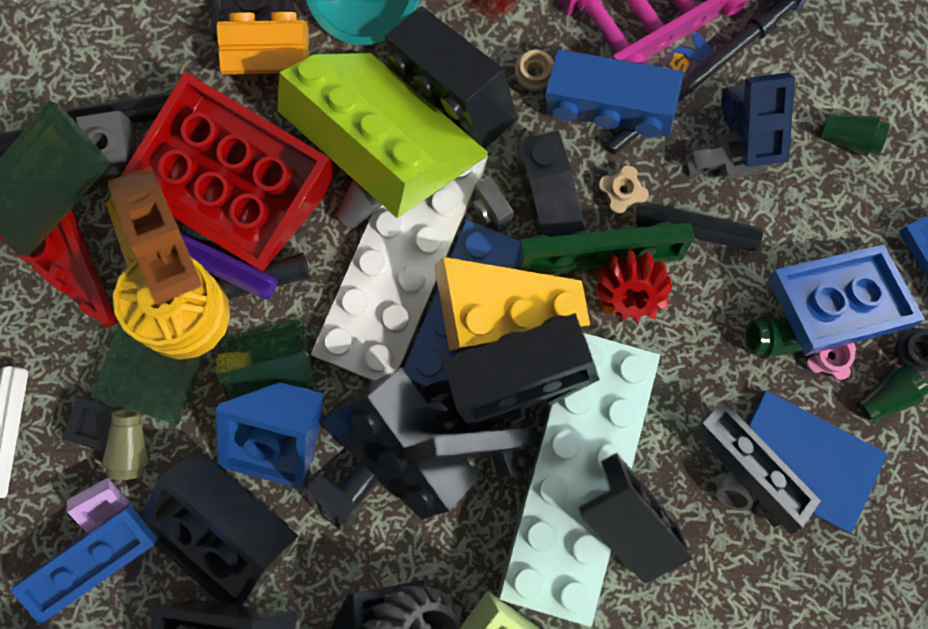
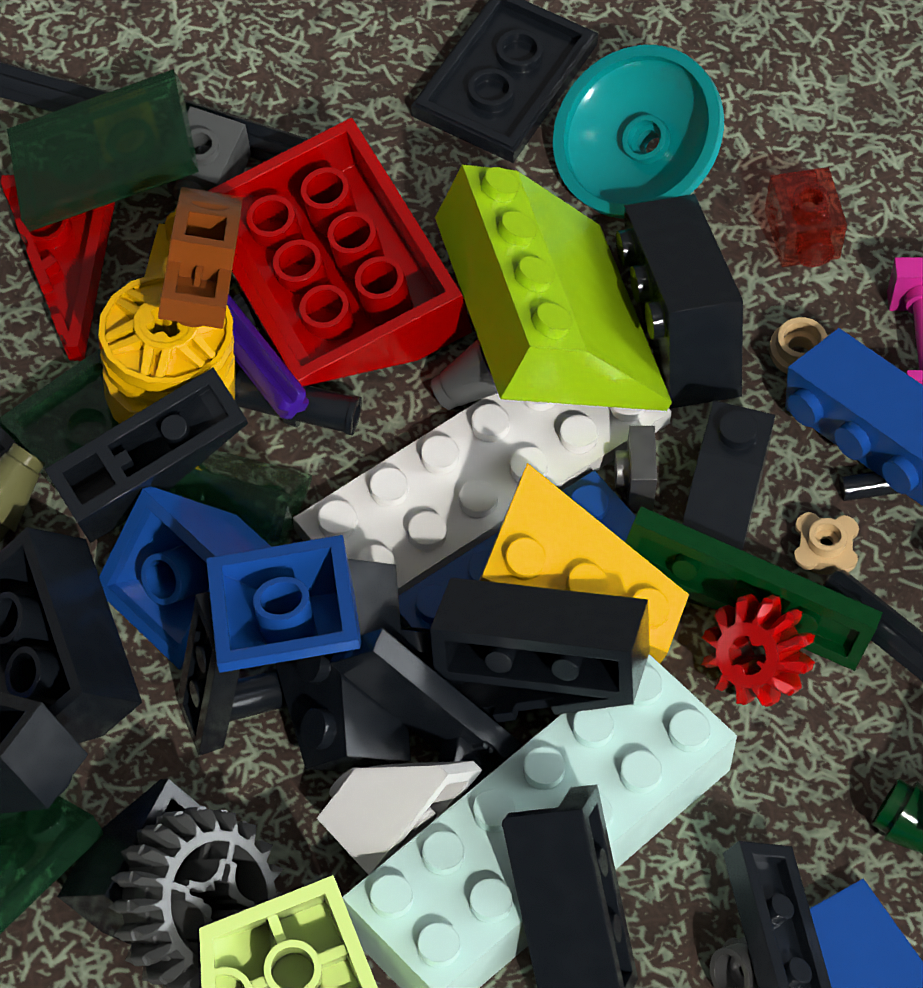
camera: 30 degrees right, 20 degrees down
(201, 384) = (144, 451): none -> black slope
(261, 45) = (452, 132): light orange brick -> none
(370, 470) = (282, 603): none -> blue slope
(489, 515) = (389, 804): none -> white slope

